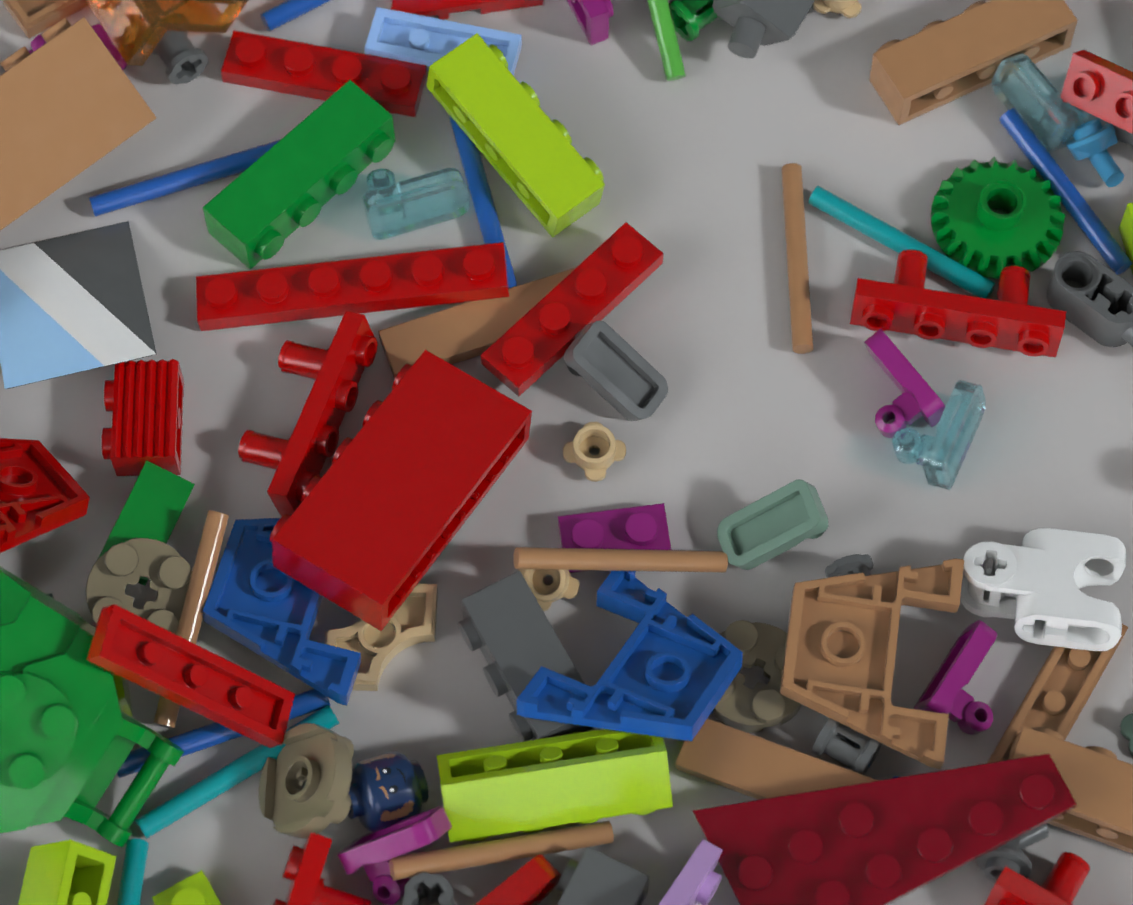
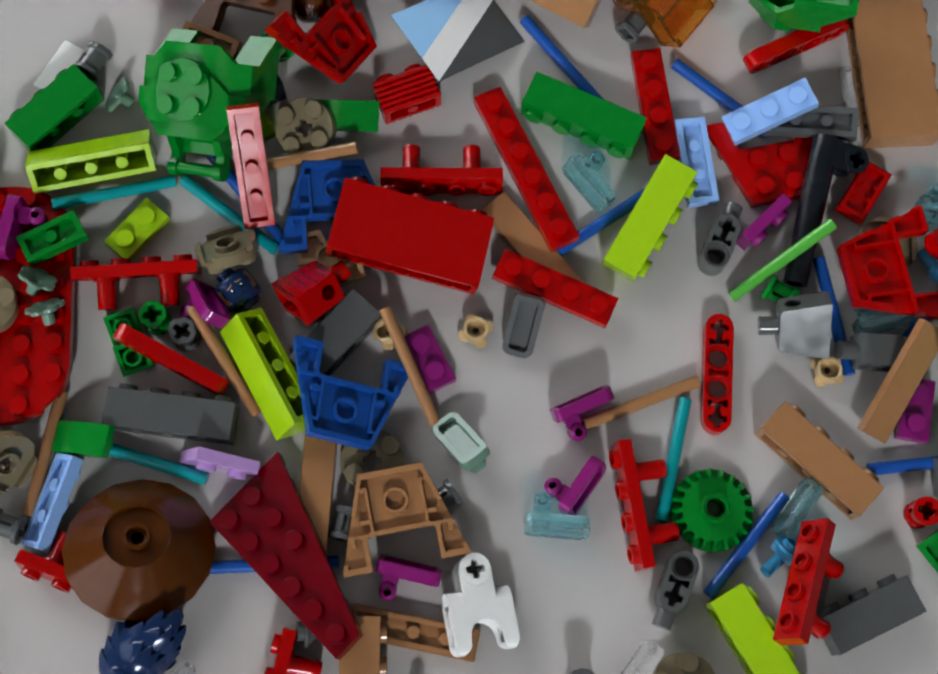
camera: 65 degrees right, 10 degrees up
(437, 669) = (311, 290): none -> red torso
(583, 54) = (730, 221): none -> dark grey piece
(773, 332) = (569, 411): none -> magenta piece
(794, 130) = (713, 373): none -> red beam

